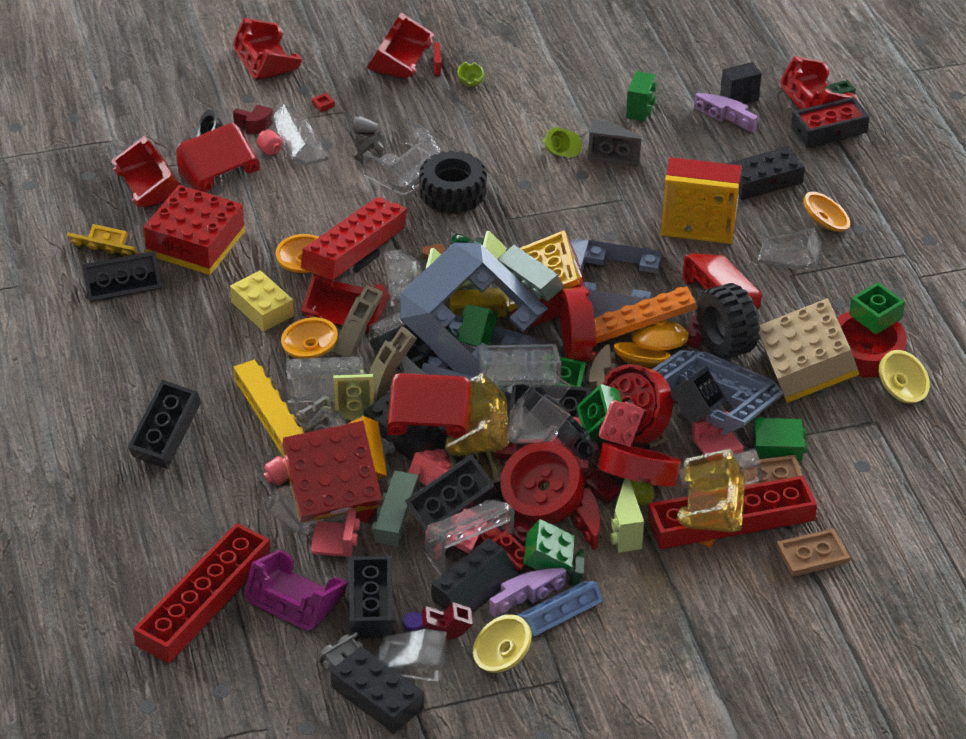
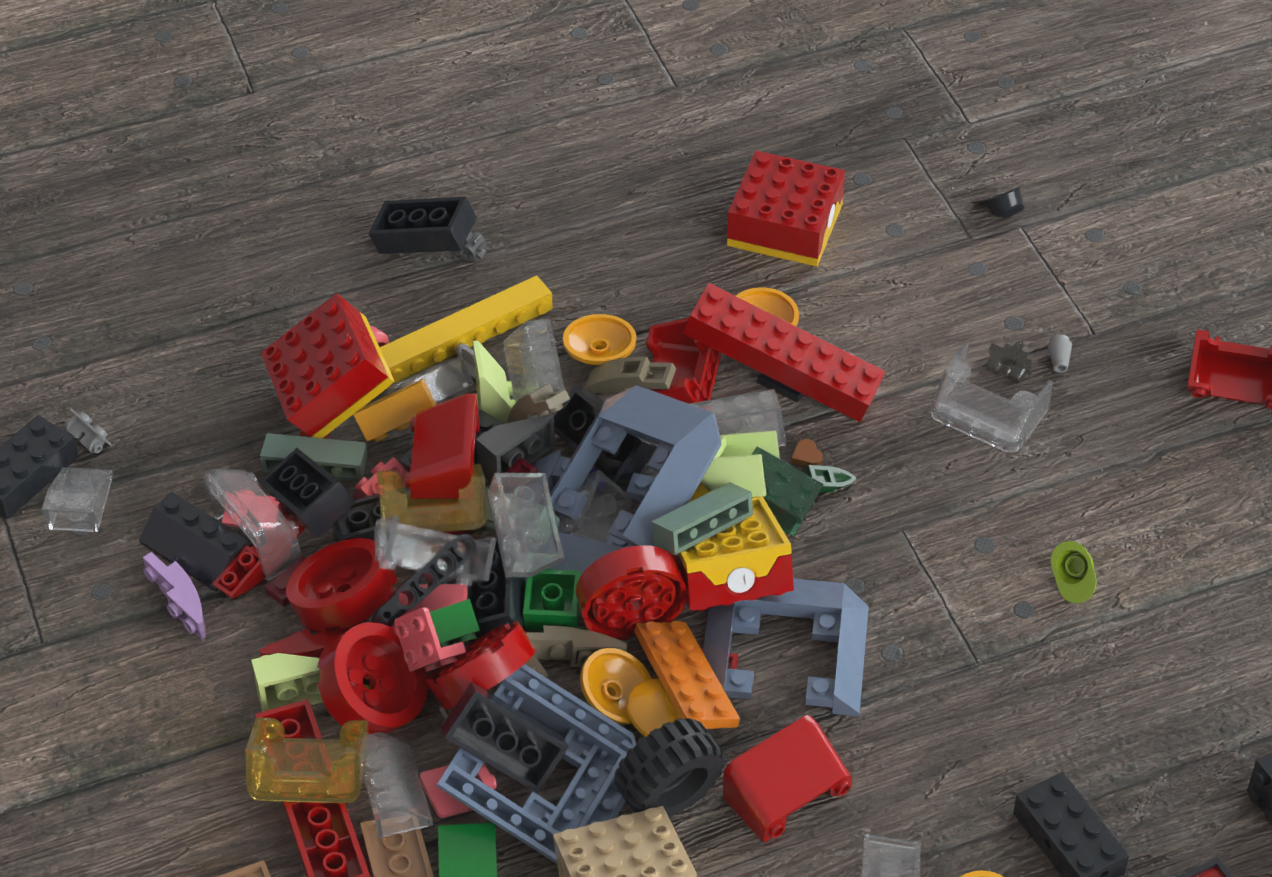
camera: 85 degrees right, 5 degrees up
(104, 238) = (760, 136): yellow bracket -> none
(121, 276) = (698, 162): black slope -> none
(146, 173) = (910, 158): red windscreen -> none
(200, 593) = (170, 300): red brick -> none
(213, 155) = (941, 210): red windscreen -> none
(253, 121) = (1037, 244): dark red brick -> none
(260, 49) = (1194, 231): red windscreen -> none
(262, 300) = (669, 290): light yellow brick -> none
(269, 142) = (989, 260): coral head -> none
(288, 595) = (179, 376): magenta windscreen -> none
(298, 137) = (1013, 290): clear slope -> none
(323, 102) = (1104, 308): red tile -> none
(335, 537) = (261, 409): coral bracket -> none
(371, 596) = (161, 444): black brick -> none
(413, 622) = (134, 495): dark purple tile -> none
(437, 59) = (1237, 415): red tile -> none
(452, 181) = (940, 475): black tyre -> none
(454, 620) = (121, 515): dark red brick -> none
(470, 74) = (1209, 453): lime hair -> none
(477, 325) = (618, 487): green brick -> none
(502, 643) = (80, 572): light yellow dish -> none
(548, 547) = (233, 604): green brick -> none
(562, 607) = (153, 631): medium blue fence -> none
(577, 568) = (213, 641): dark green plate -> none
(613, 144) = (1081, 622): dark grey slope -> none
(641, 96) = (1209, 657): green brick -> none
(700, 200) = (939, 727): yellow piece -> none
(726, 108) = (1221, 780): lavender slope -> none

